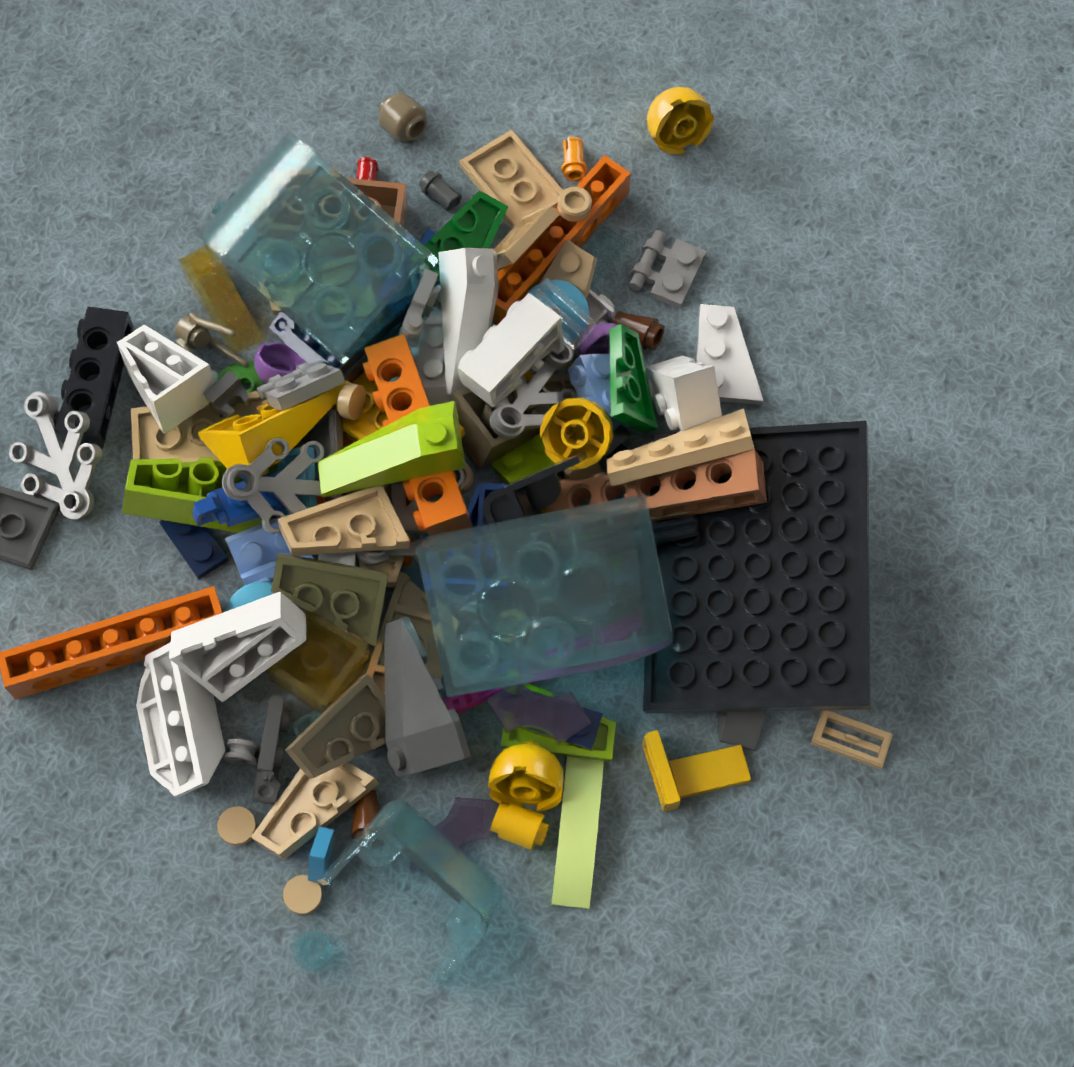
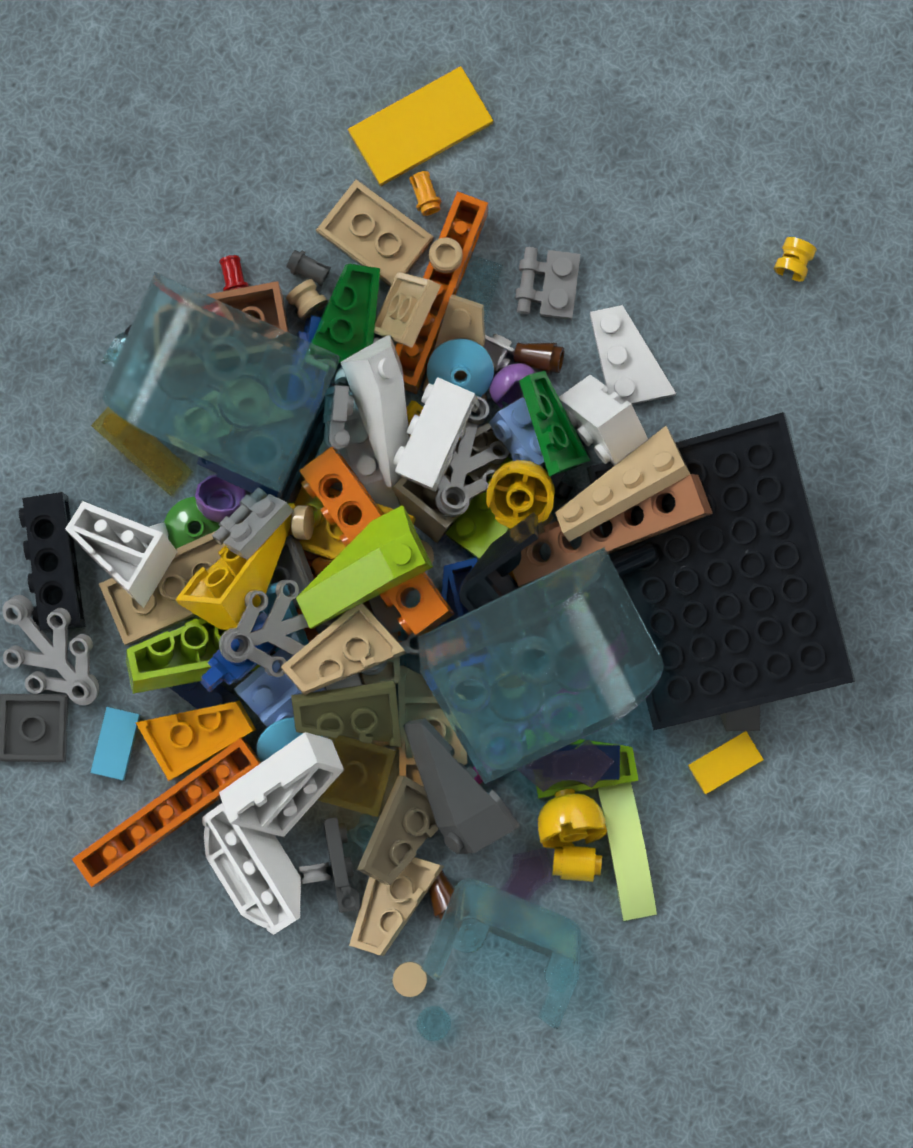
camera: 10 degrees left, 15 degrees up
(88, 566) = (115, 743): none -> medium azure tile
(161, 576) = (194, 736): none -> light orange wing
(194, 333) = (133, 491): dark tan plant -> none
(226, 394) = (185, 549): dark grey tile -> none
(236, 826) = (332, 937): tan tile -> none
(320, 853) = (415, 943): dark azure tile -> none
(402, 117) = (247, 201): dark tan head -> none
(427, 214) = (306, 299): none -> tan wheel
(583, 334) = (482, 397): clear tile -> none
(587, 103) = (420, 126): none -> yellow tile
(660, 771) = (683, 777): yellow tile -> none
(679, 119) = (513, 123): yellow cylinder -> none
(876, 762) = (870, 697): tan tile -> none
(919, 309) = (795, 258): none -> yellow wheel

